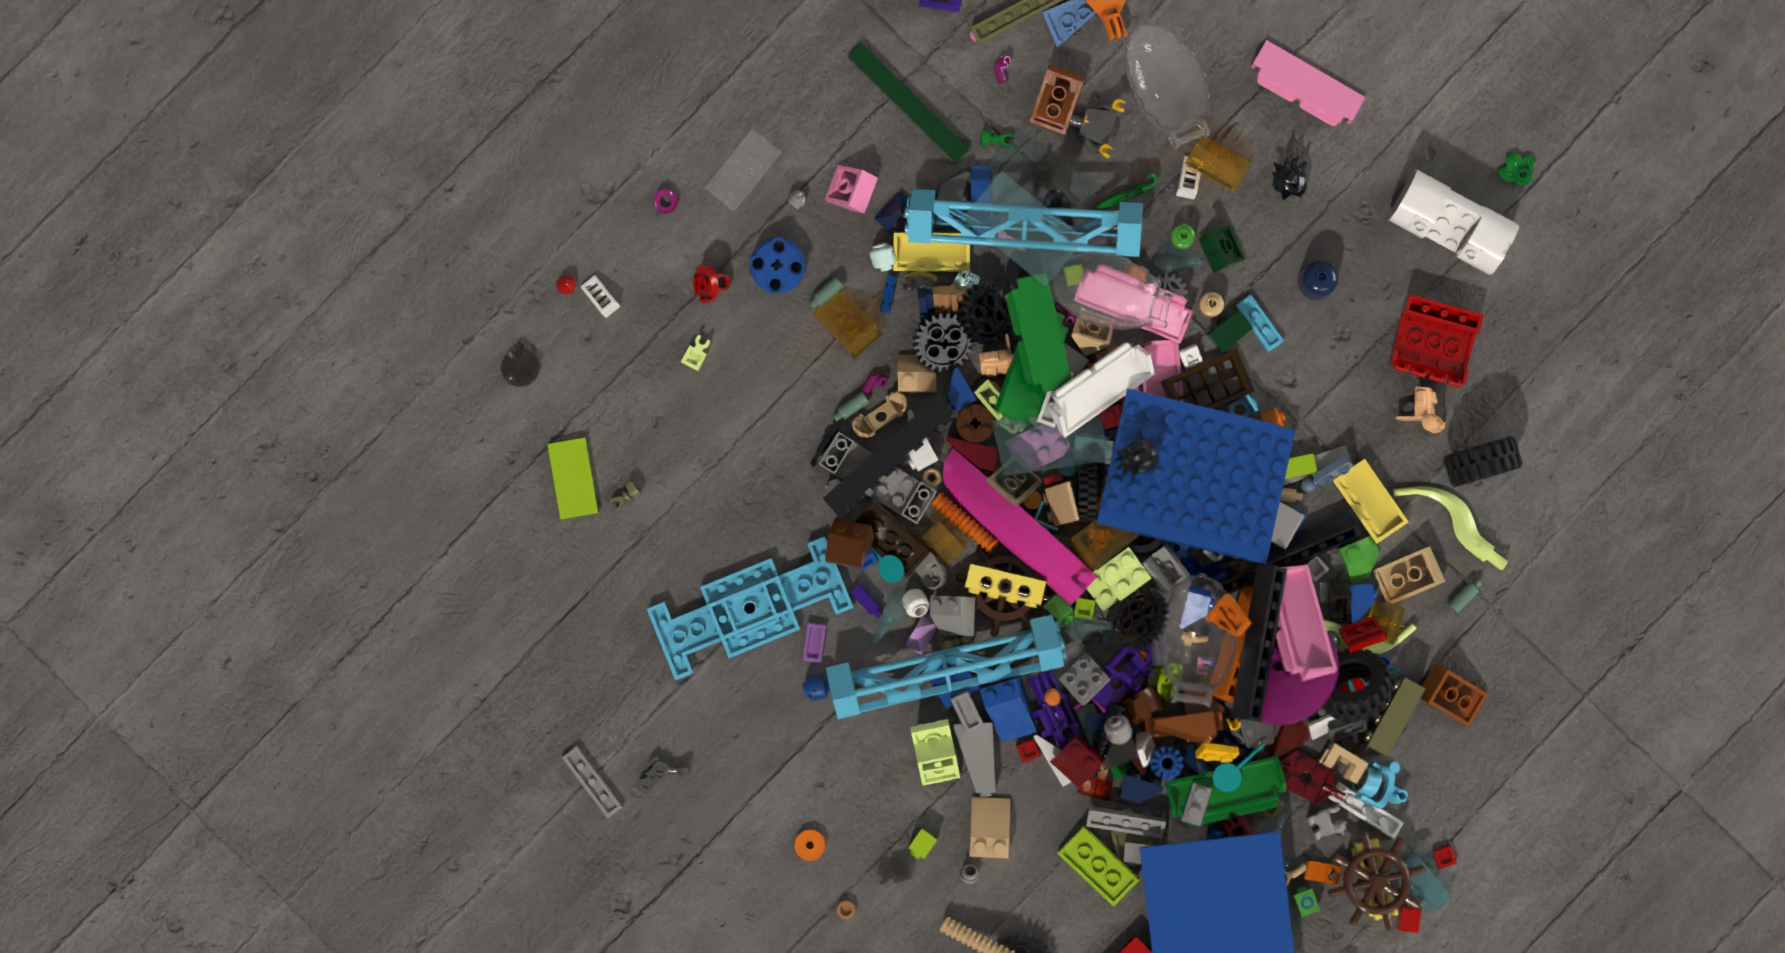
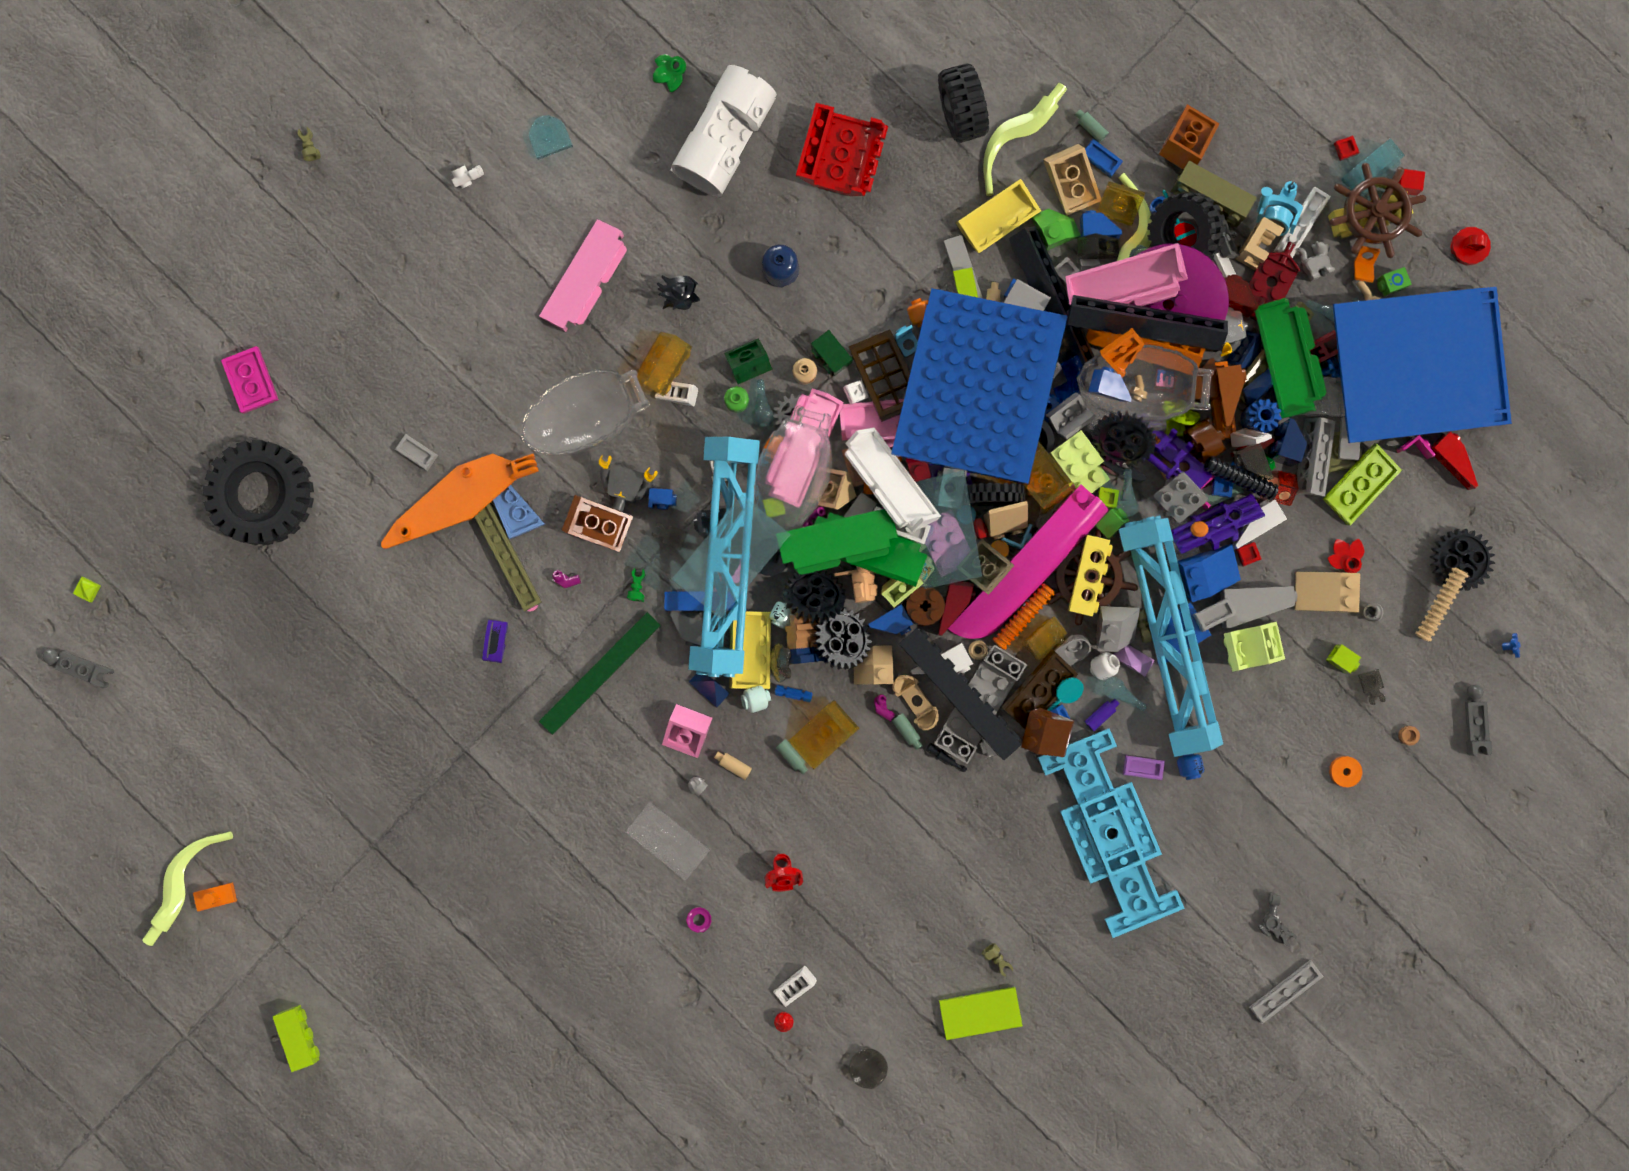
camera: 90 degrees left, 0 degrees up
(695, 356) = (856, 889): yellowish green plate -> none
(777, 265) = (764, 806): blue piece -> none
(817, 235) = (733, 765): none -> tan cylinder
(1029, 849) = (1344, 553): none -> red plate
(1077, 761) = (1265, 502): dark red slope -> none
(1082, 163) = (662, 498): none -> blue brick
(1118, 729) = (1235, 463): light grey head -> none
(1137, 190) = (689, 444): green piece -> none
(1138, 458) = (965, 440): black hair -> none
(1140, 926) = (1422, 444): none -> dark pink bracket
(1196, 804) = (1305, 386): light grey plate -> none
(1217, 752) = (1253, 362): yellow plate -> none
(1227, 776) = (1276, 355): teal piece -> none
(1259, 321) = (819, 325): medium azure tile -> none
(1327, 474) = (975, 258): sand blue plate -> none
(1362, 634) = (1133, 223): red plate -> none
(1424, 410) = (910, 161): light nougat piece -> none
(1432, 606) = (1102, 158): none -> blue tile
(1449, 48) = (549, 136): none -> clear light blue tile

